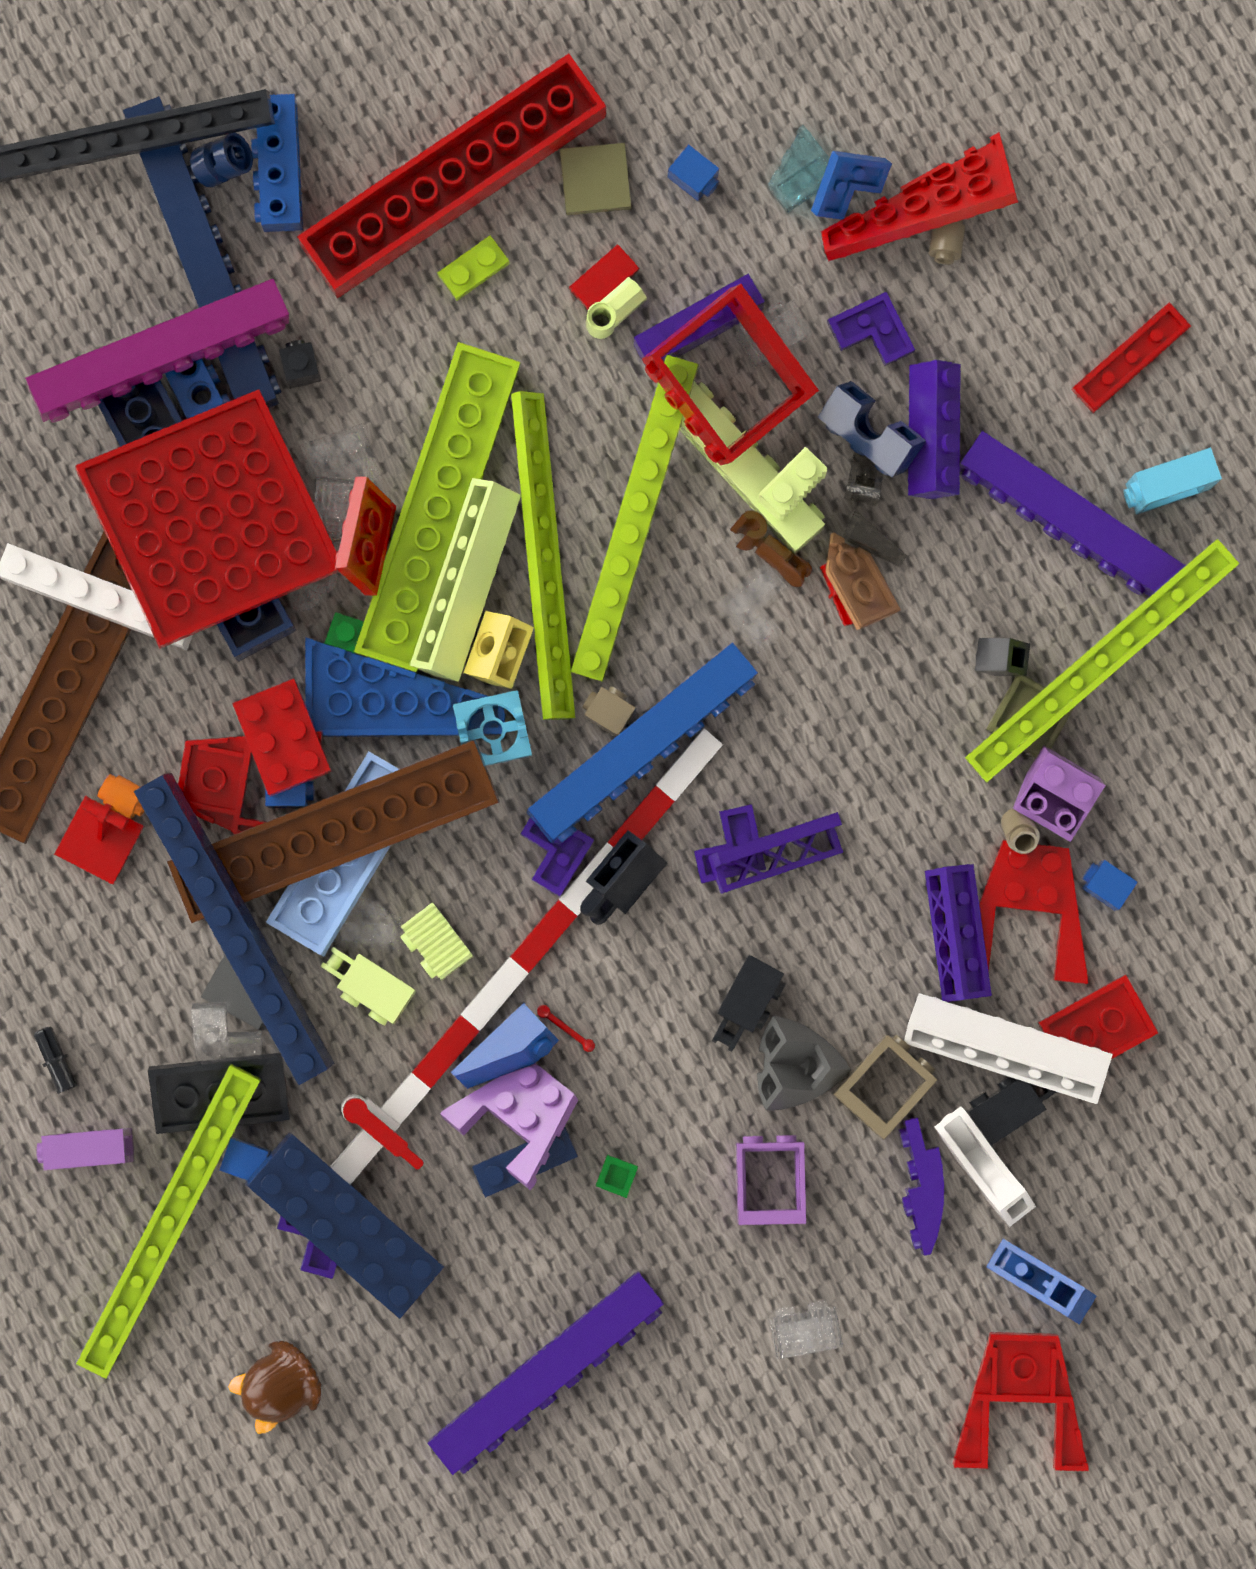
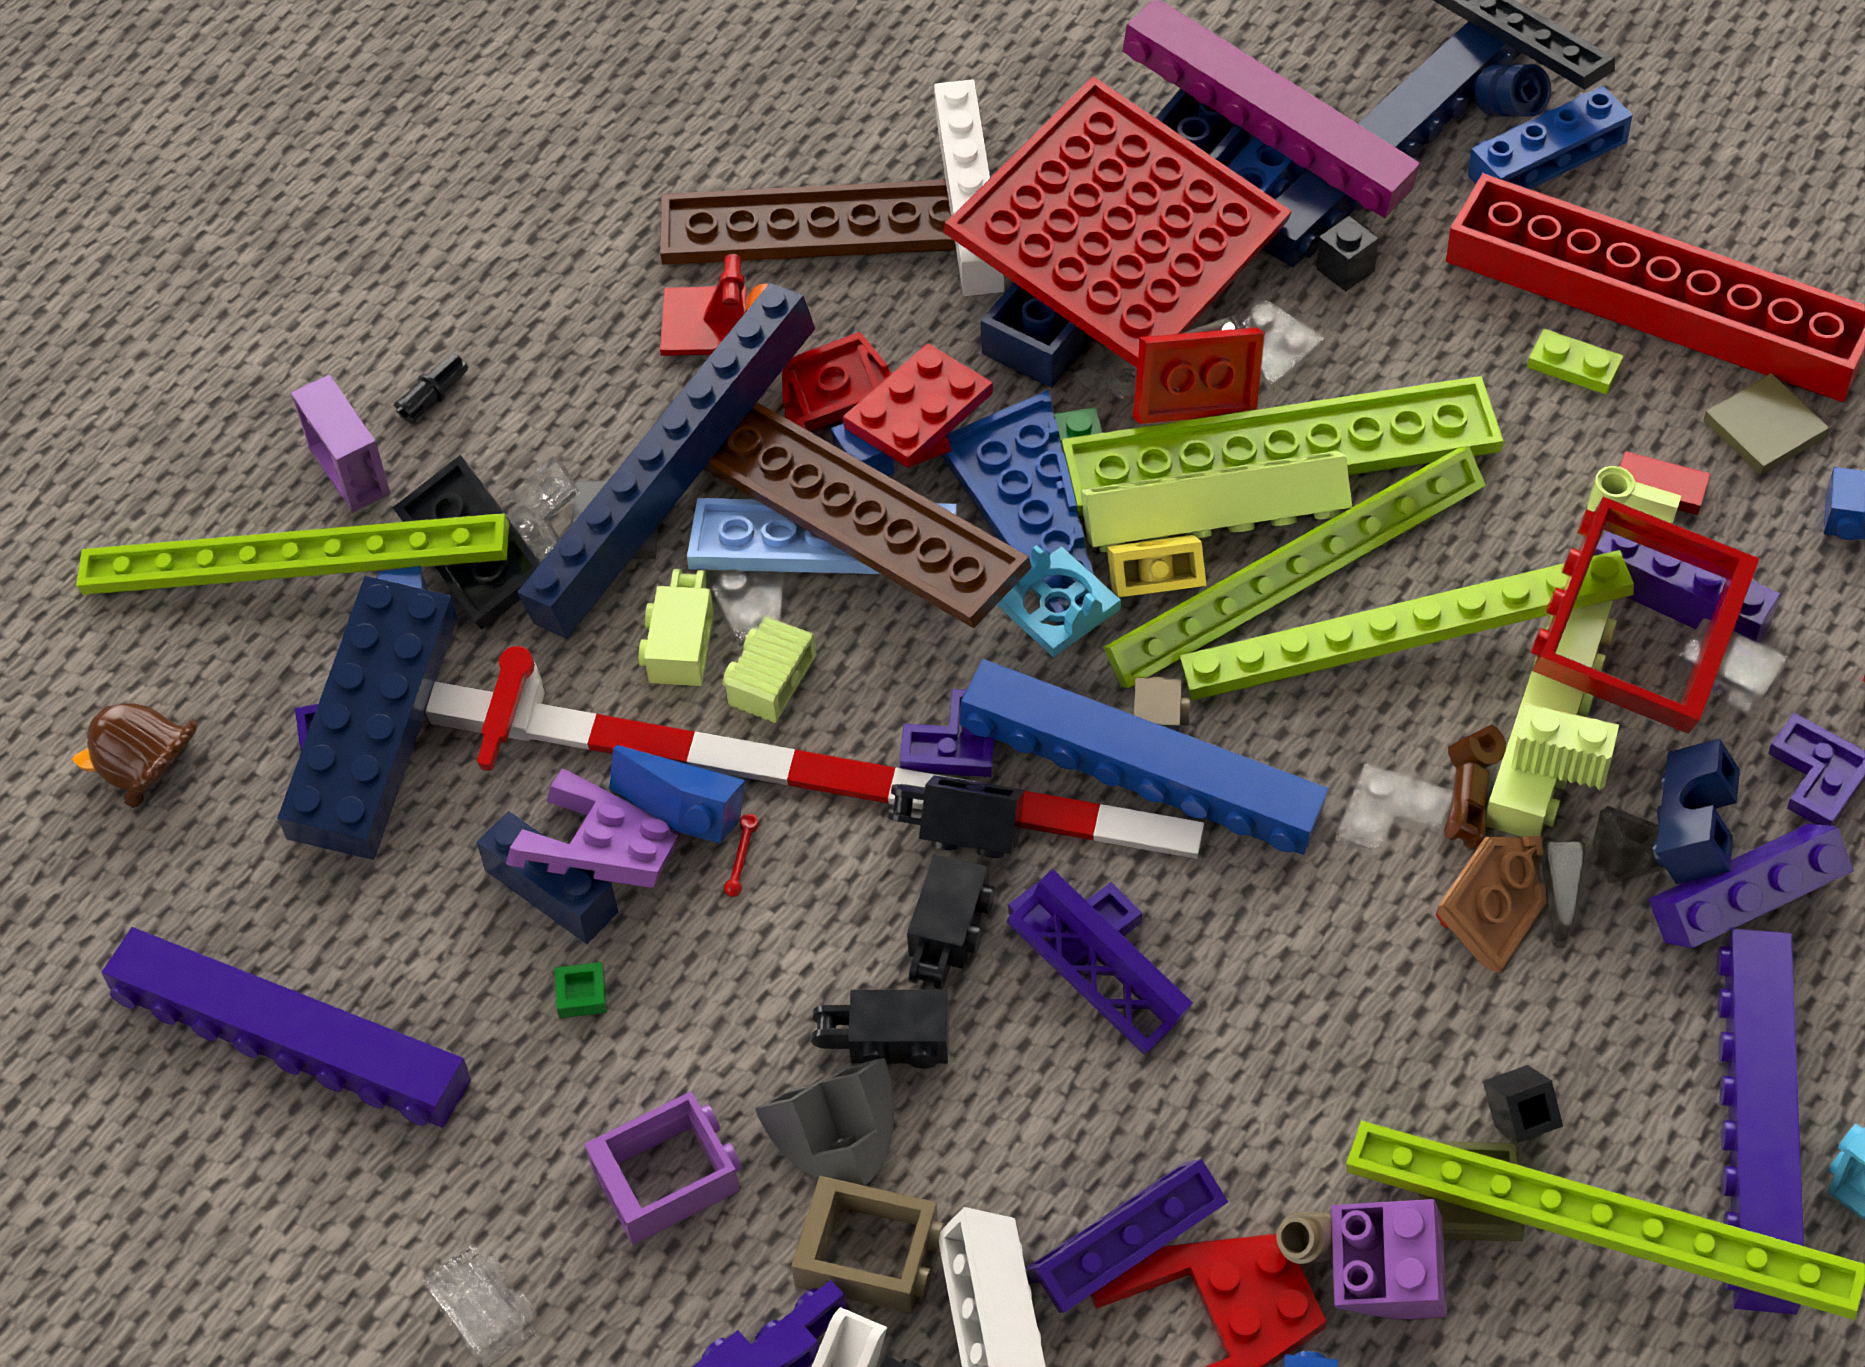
camera: 70 degrees right, 30 degrees down
(690, 925) = (948, 918): none -> black brick

